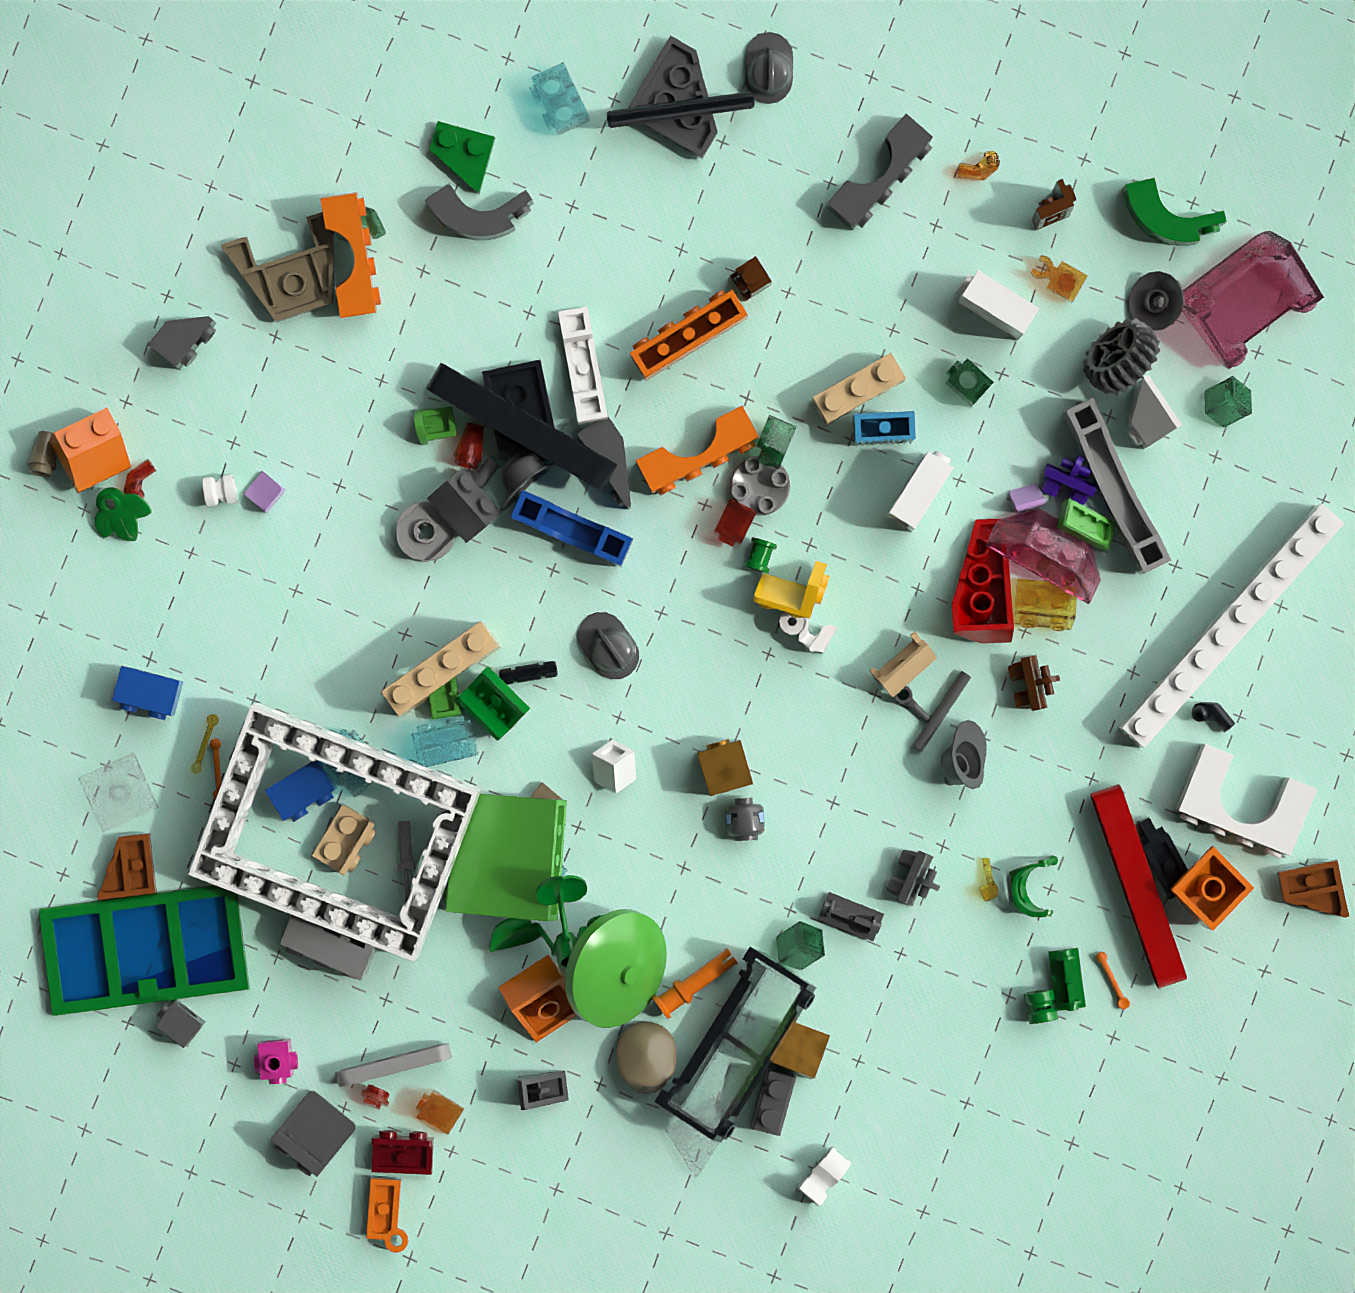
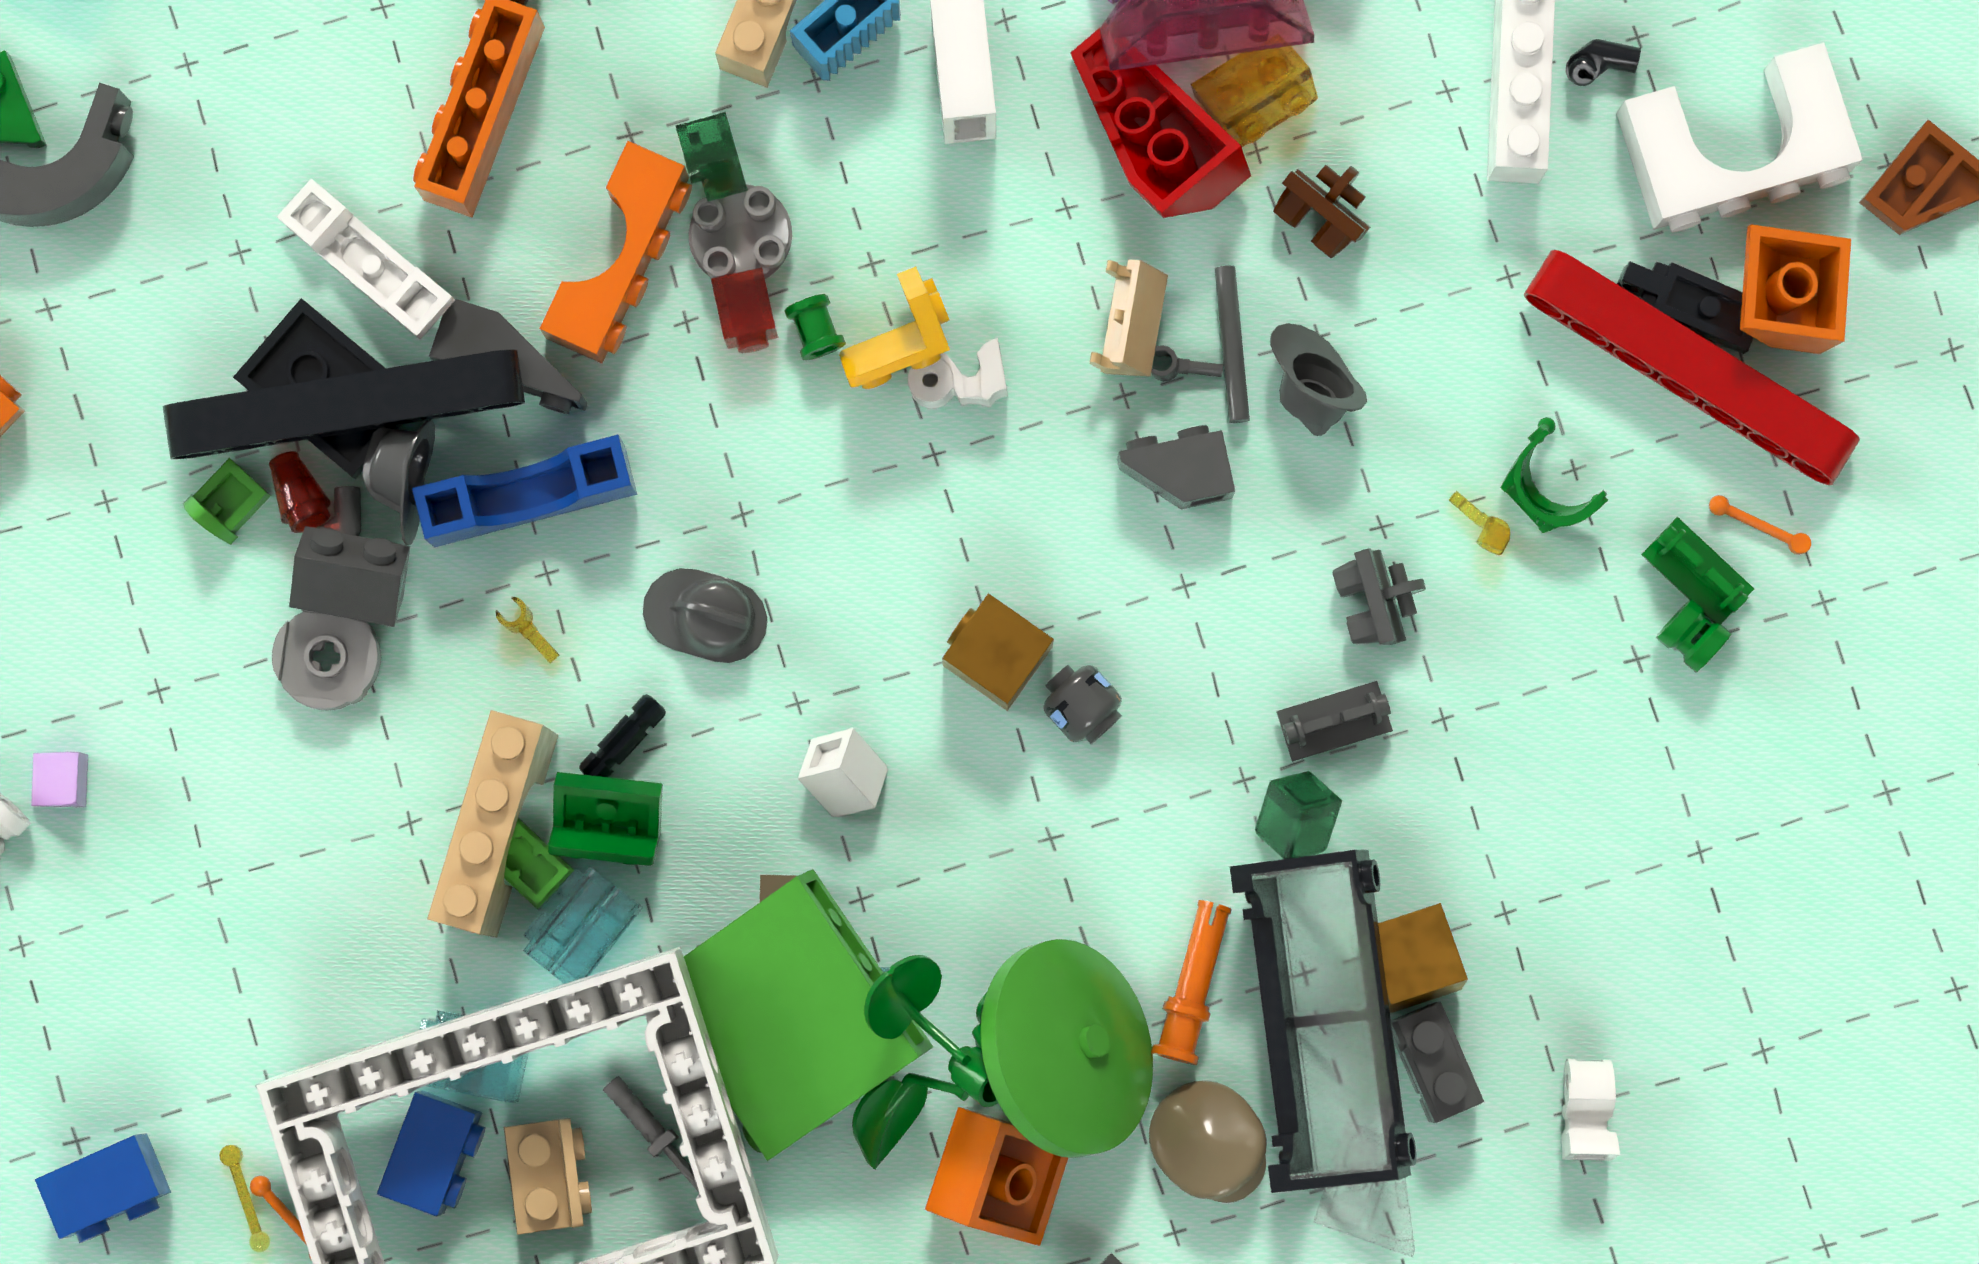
camera: 35 degrees left, 5 degrees down
(524, 590) = (528, 630): none -> clear yellow hand
(874, 752) = (1182, 470): none -> dark grey slope

